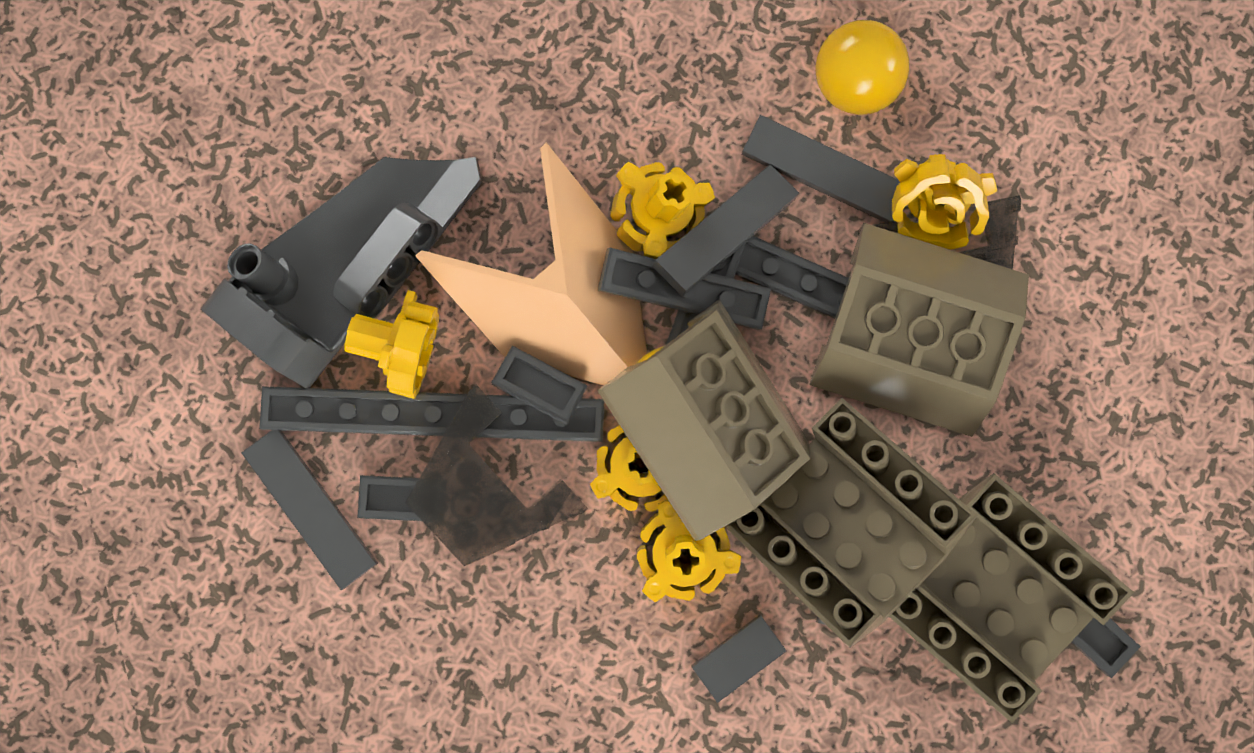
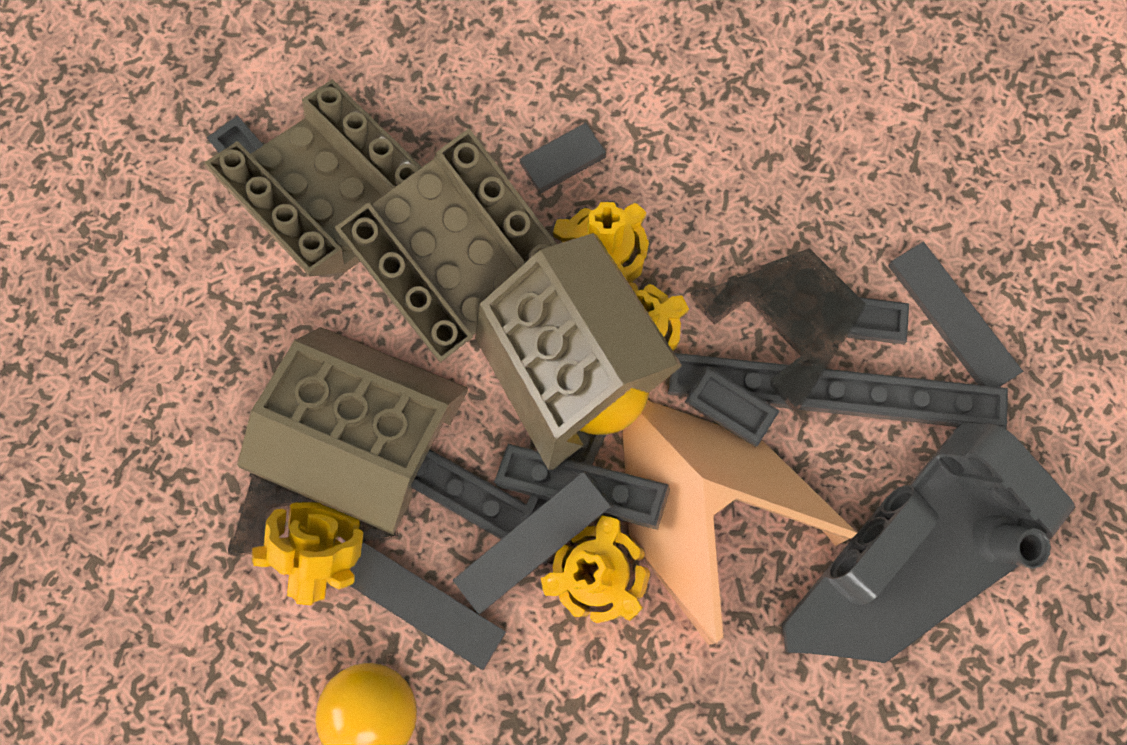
camera: 170 degrees left, 10 degrees down
(399, 347) = (869, 449): yellow piece -> none

